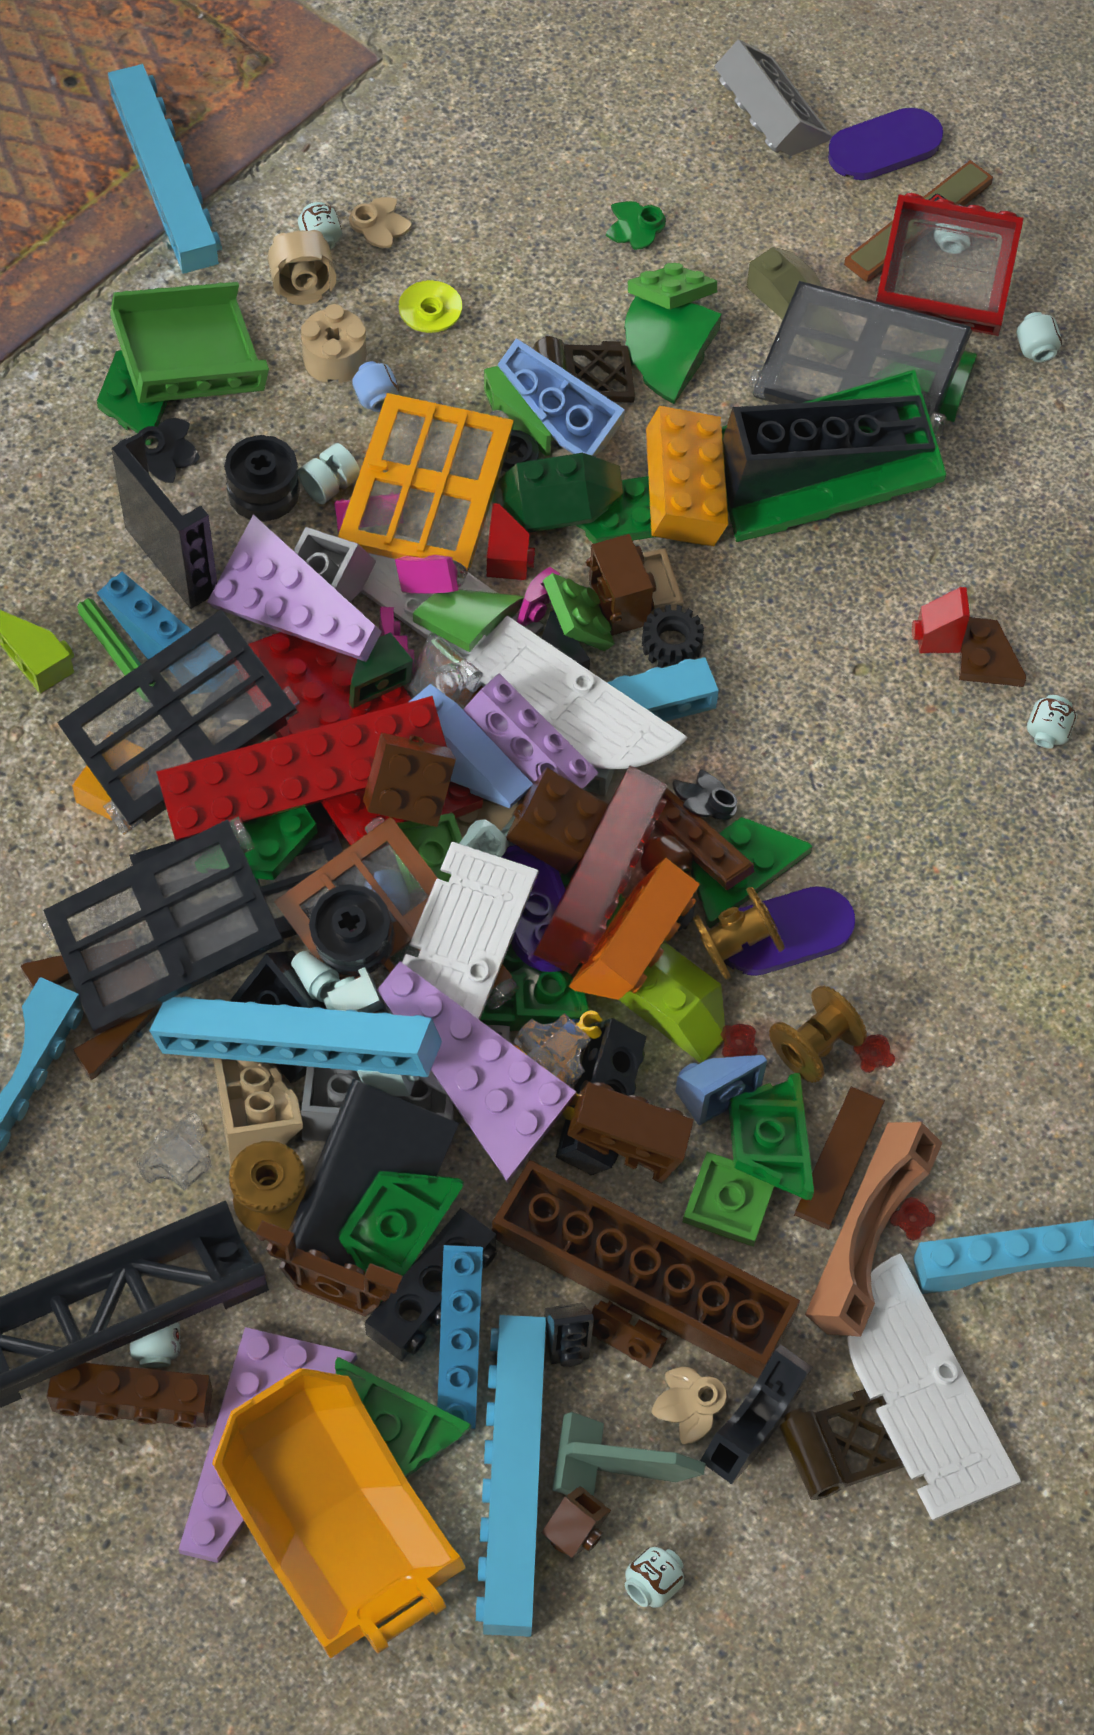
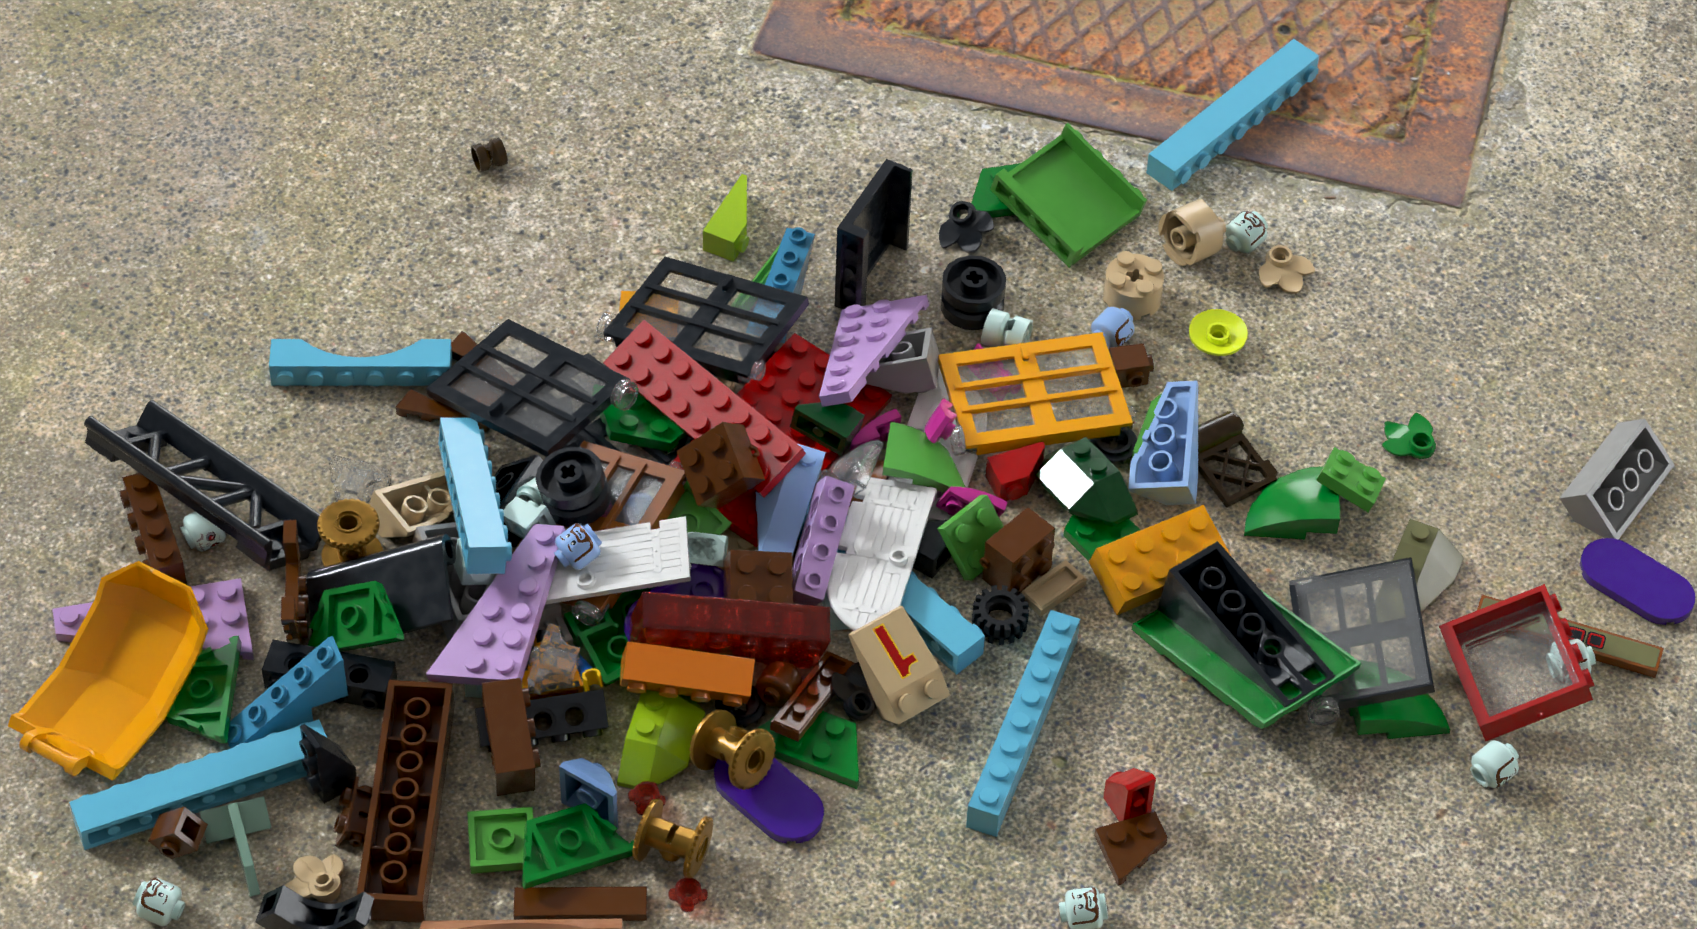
camera: 65 degrees right, 10 degrees down
(432, 387) = (1132, 364): none -> reddish brown brick
(440, 957) = (577, 546): none -> light blue head
(718, 744) = (898, 666): none -> tan slope
(815, 674) = (1022, 723): none -> medium azure brick

